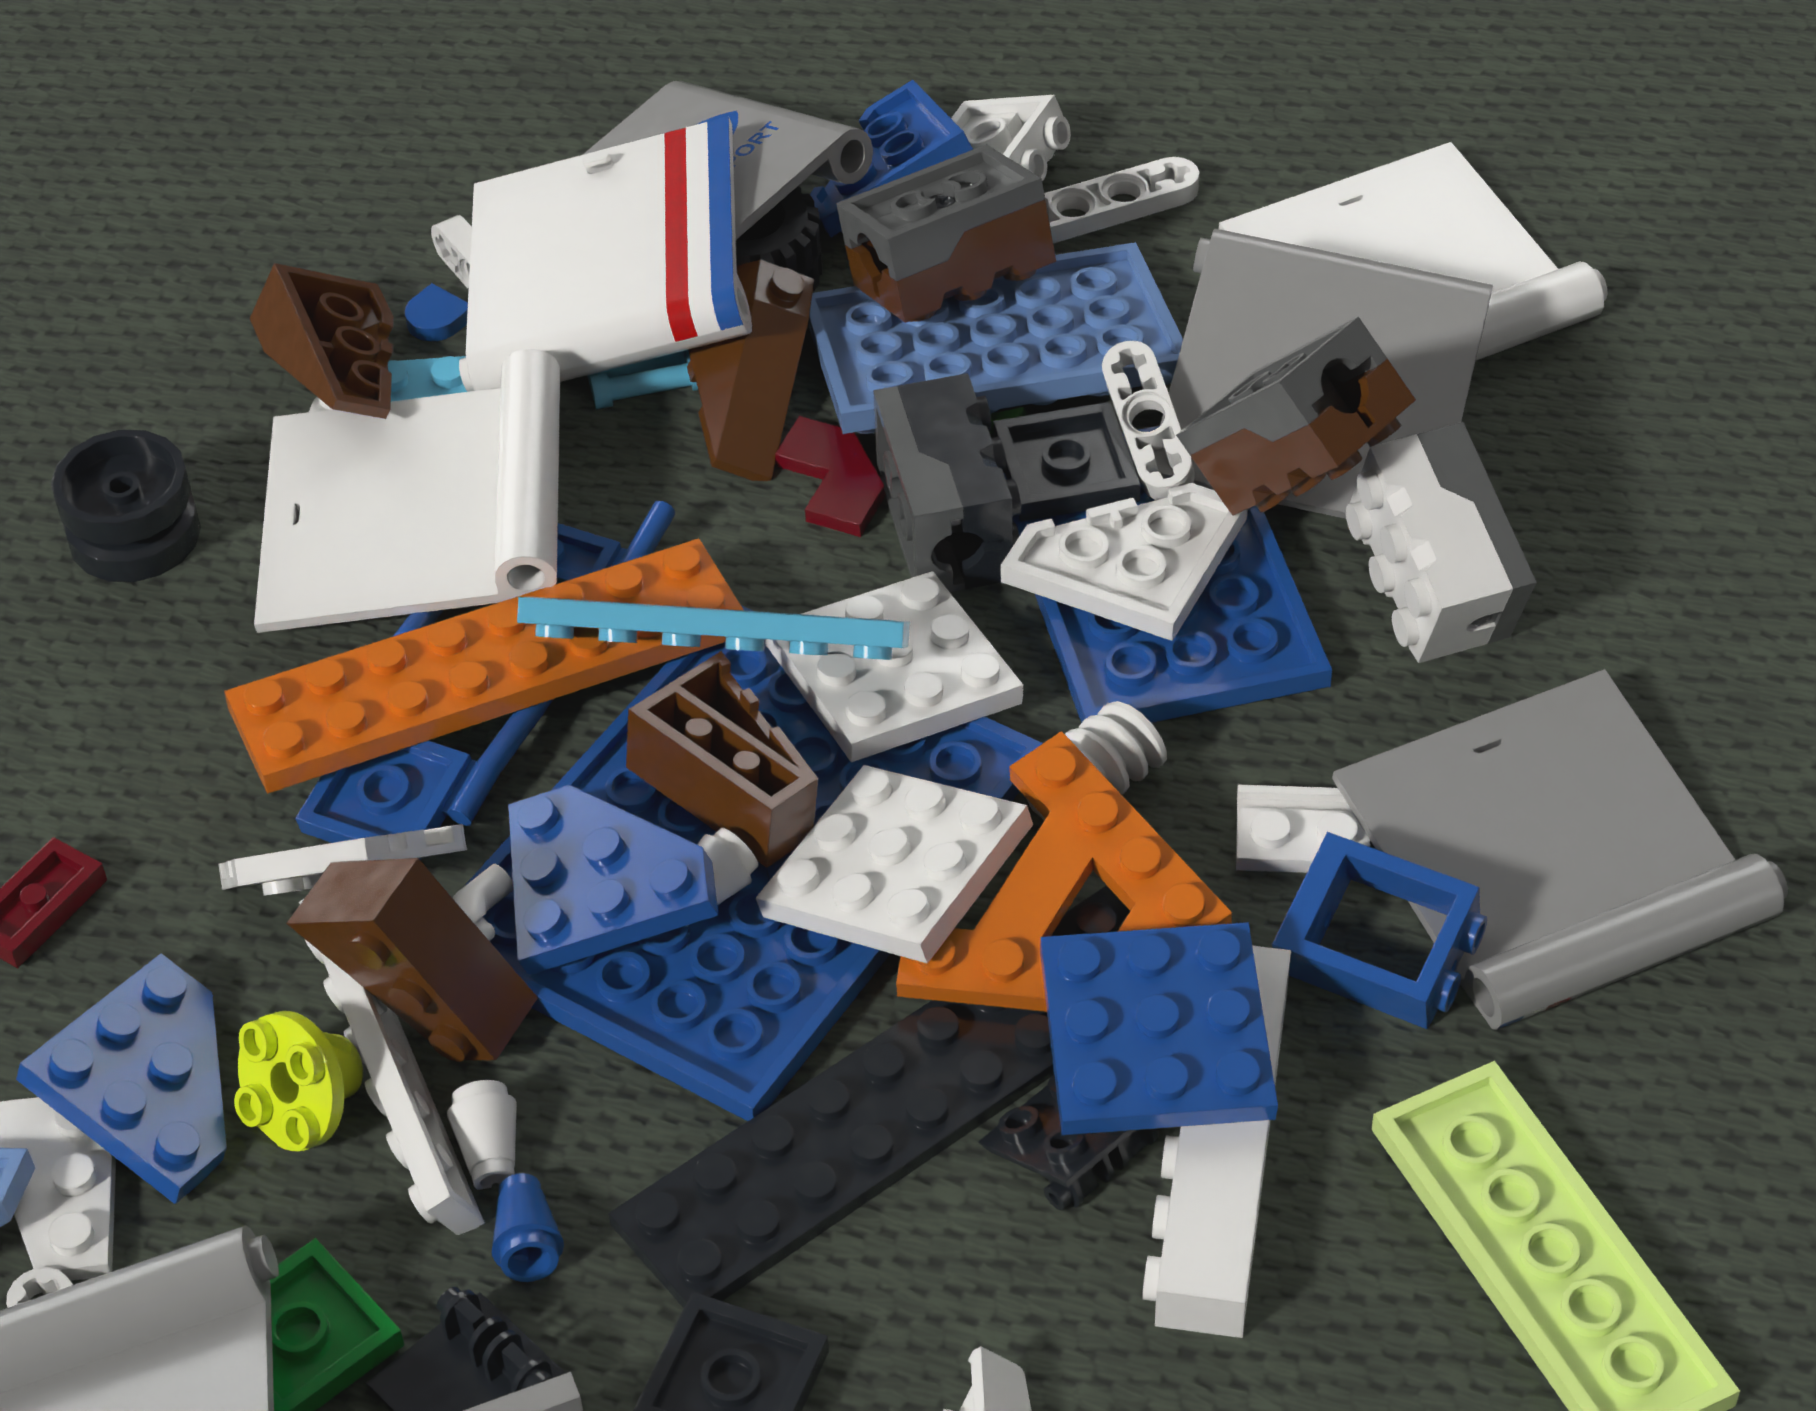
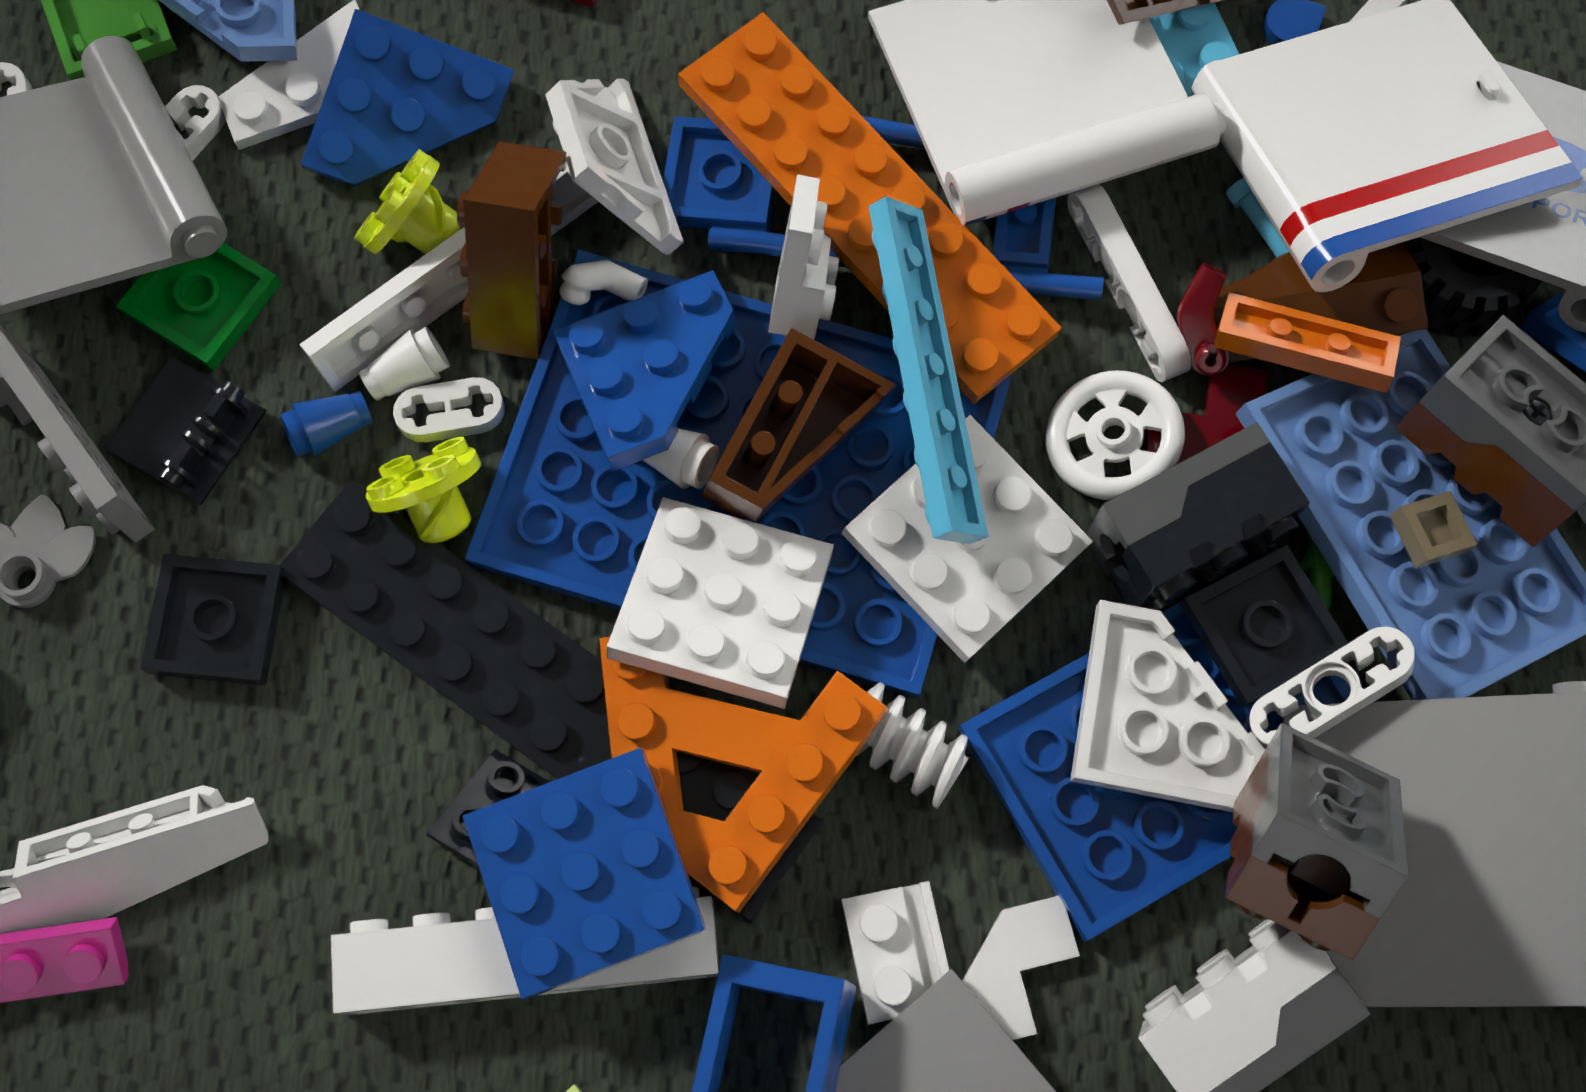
camera: 70 degrees right, 25 degrees up
(543, 1103) = (447, 397): none -> white beam
(544, 706) = (805, 269): none -> white plate
(653, 1121) = (428, 489): none -> neon yellow plate
(662, 483) = (1130, 282): none -> white beam
(737, 440) = (1197, 320): none -> dark red arm
(795, 358) = (1308, 342): none -> orange plate
(818, 496) = (1110, 389): none -> white plate
(1018, 315) = (1433, 529): none -> dark tan plate
(1317, 729) = (1017, 942): none -> white tile

